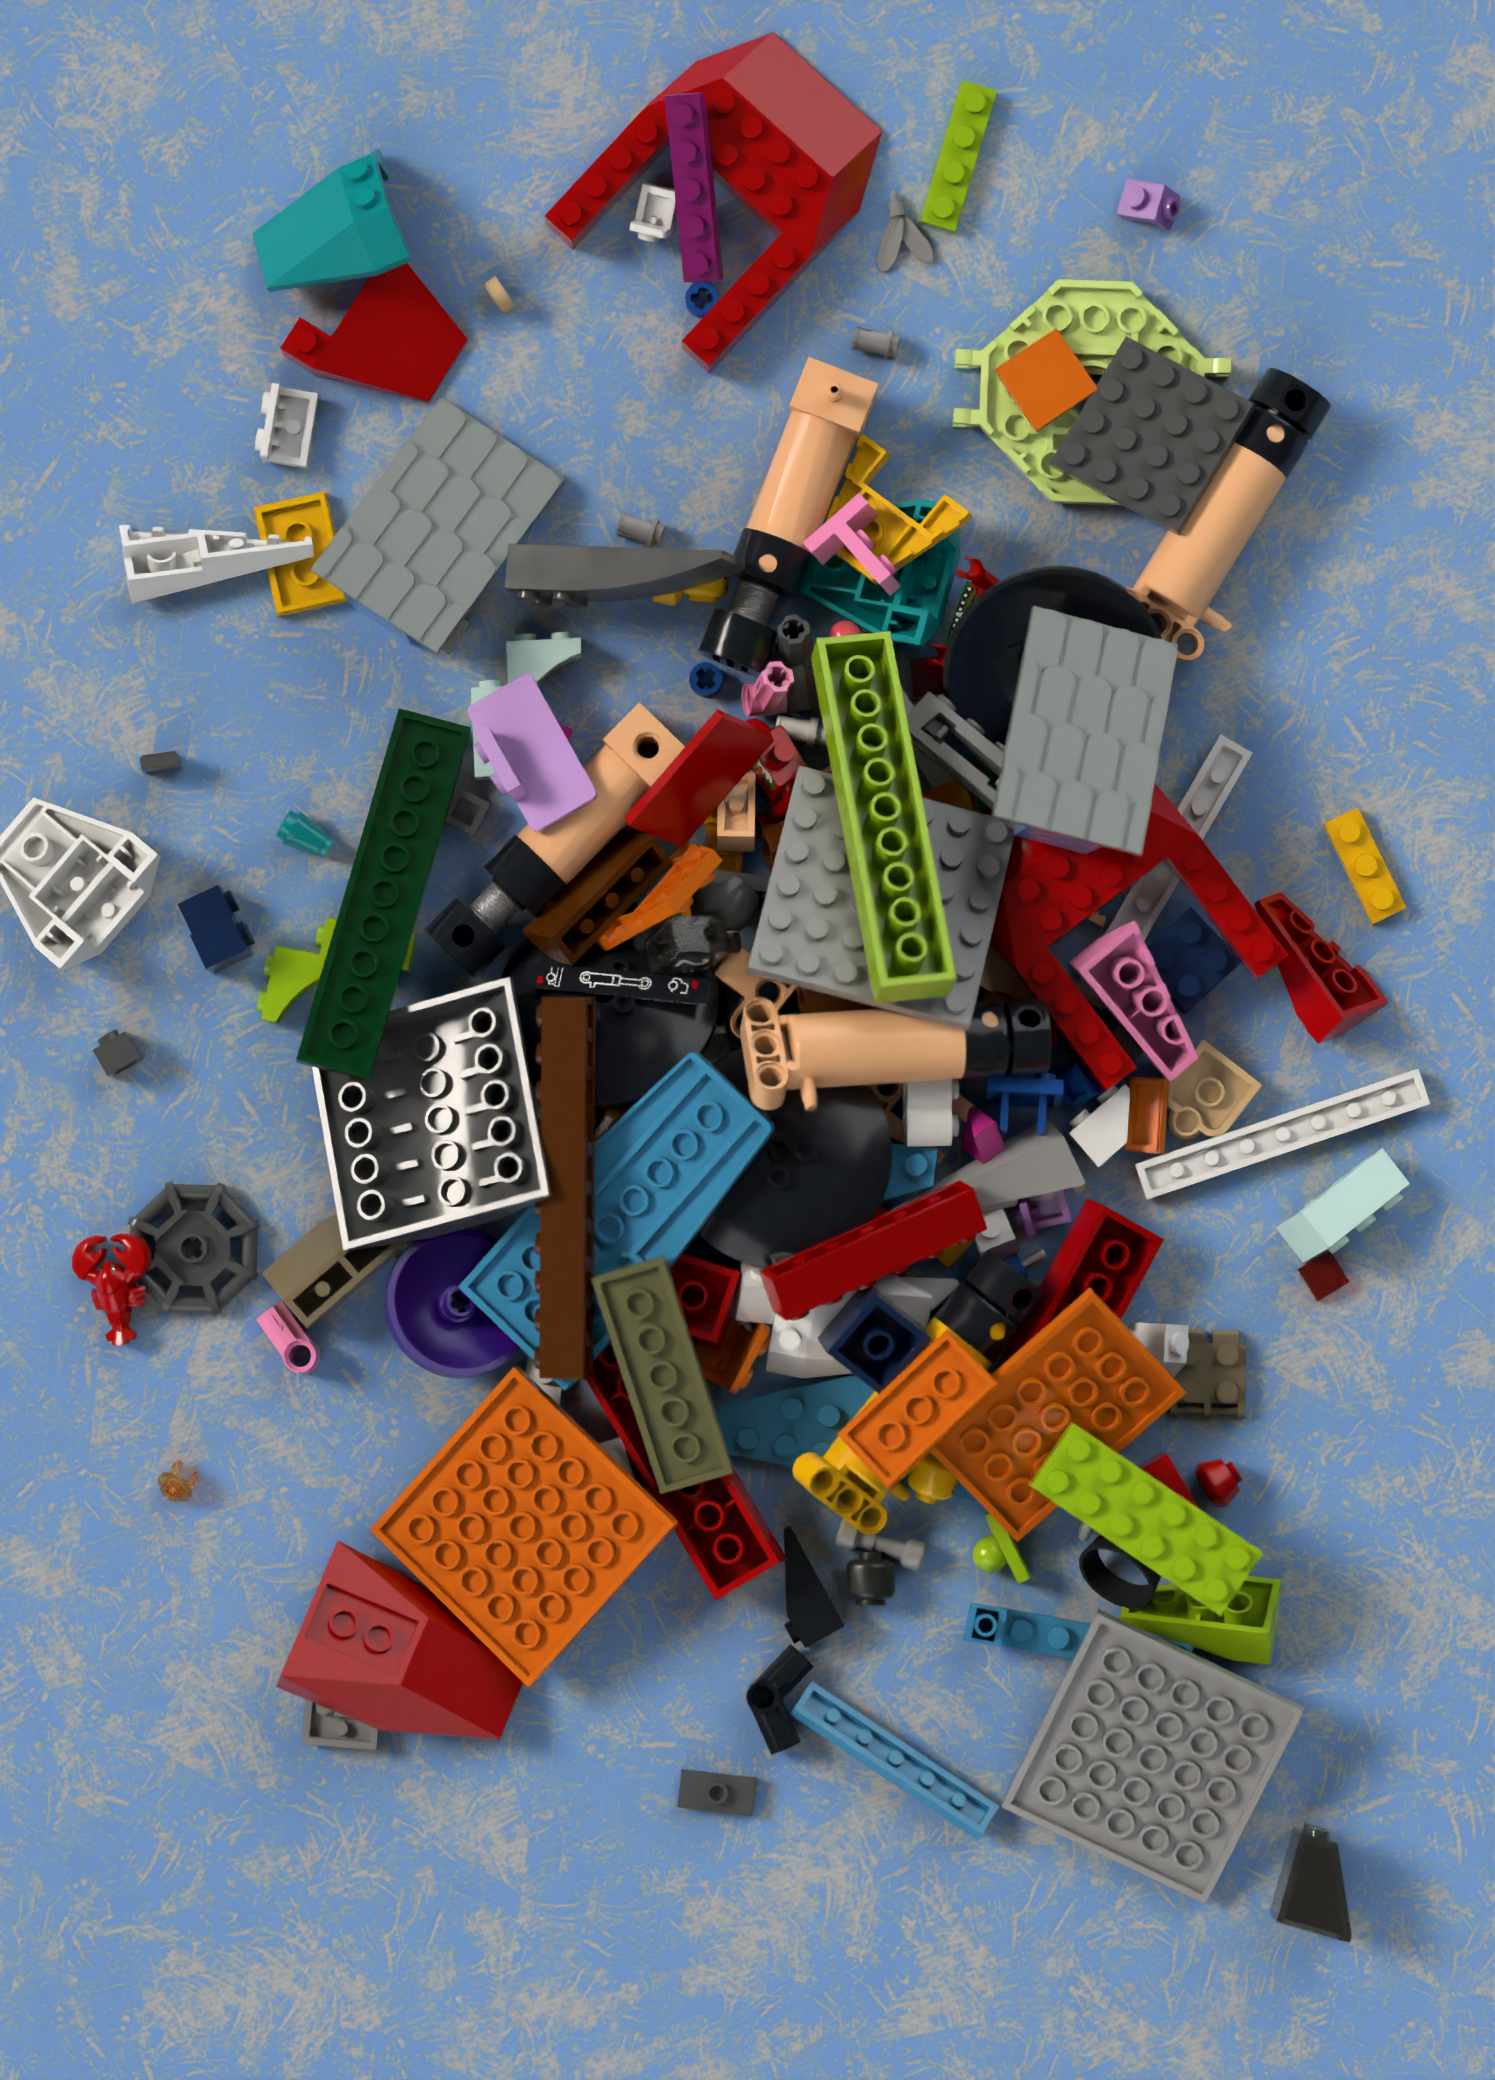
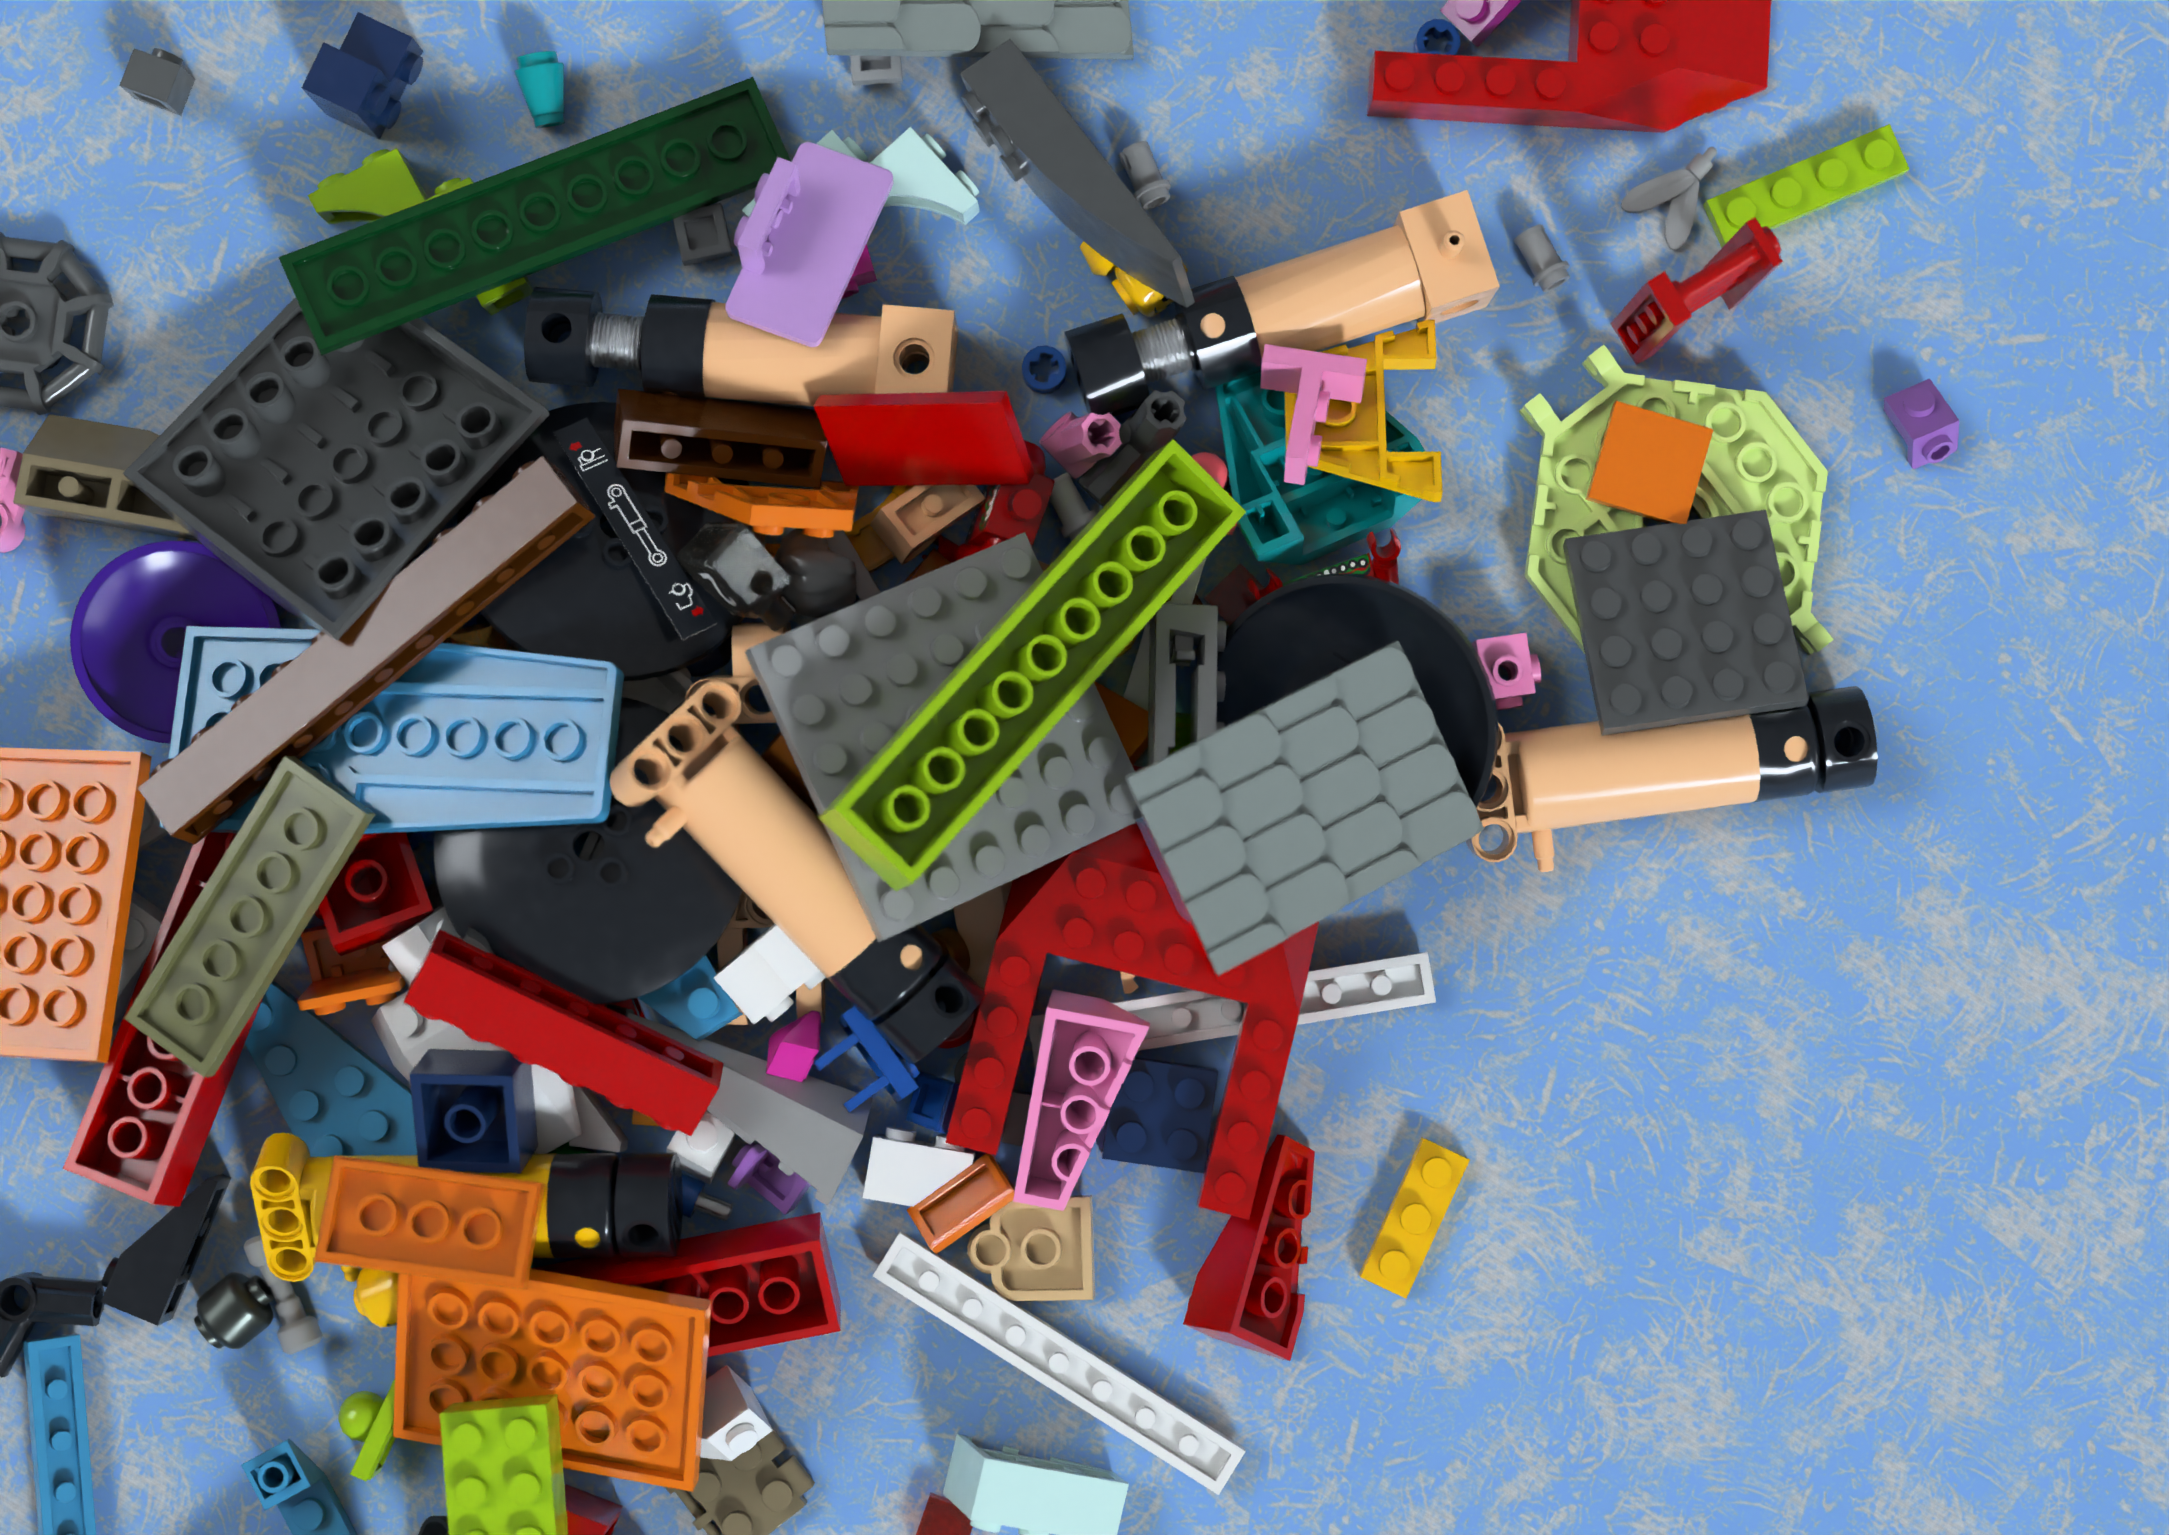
camera: 50 degrees right, 0 degrees up
(969, 307) = (1666, 306): none -> red fence
(1101, 547) = (1522, 668): none -> bright pink brick

